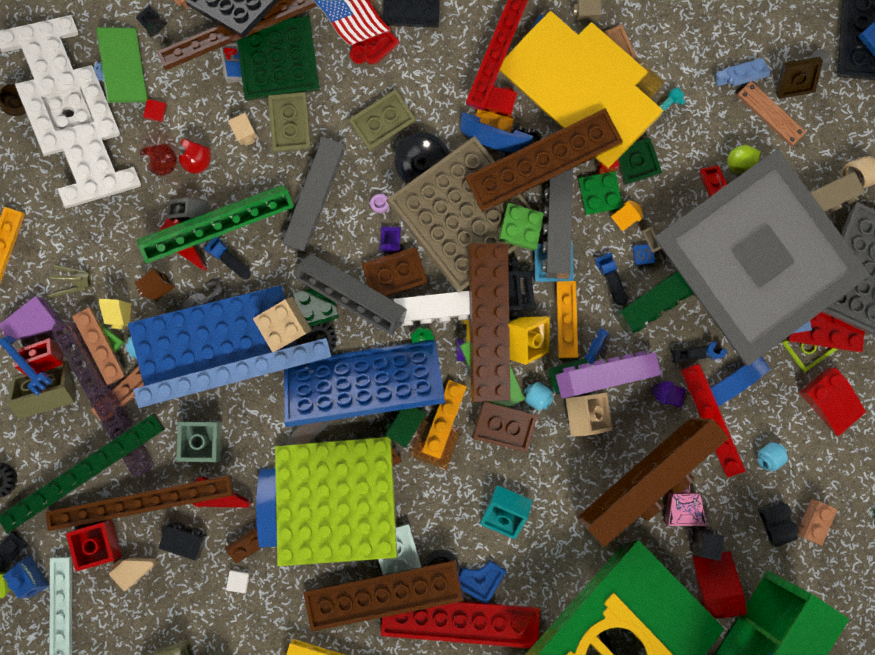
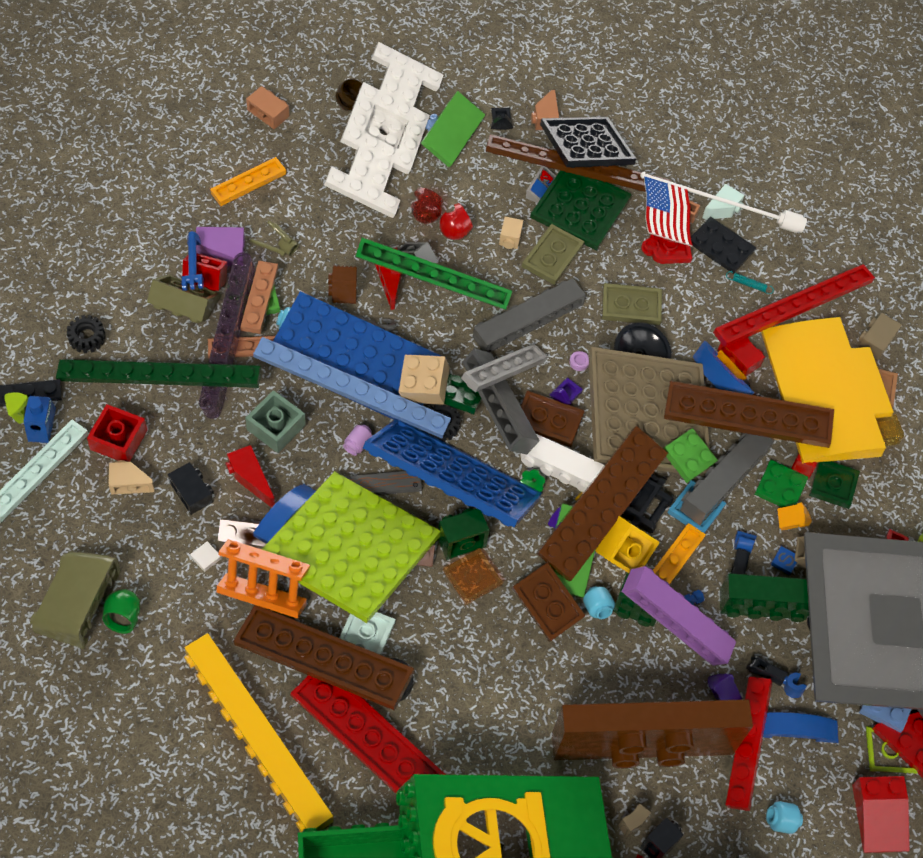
camera: 30 degrees right, 25 degrees down
(115, 312) = (294, 280): light yellow slope -> none
(140, 503) = (189, 430): reddish brown plate -> none
(154, 110) = (451, 176): red tile -> none
(218, 250) = (415, 300): piece -> none
(270, 404) = (356, 439): none -> lavender brick
(294, 577) = (258, 594): none -> orange fence
(334, 266) = (504, 367): none -> light grey plate
(444, 420) = (497, 559): light orange plate -> none
(457, 26) = (749, 282): none -> teal piece
(483, 581) = (420, 722): blue tile -> none
(506, 512) = (490, 676): teal slope -> none
(588, 414) = (634, 650): tan slope -> none
(675, 96) = (906, 457): teal piece -> none
(677, 540) = (634, 821): none -> dark tan piece
(684, 509) = (664, 796): bright pink torso -> none

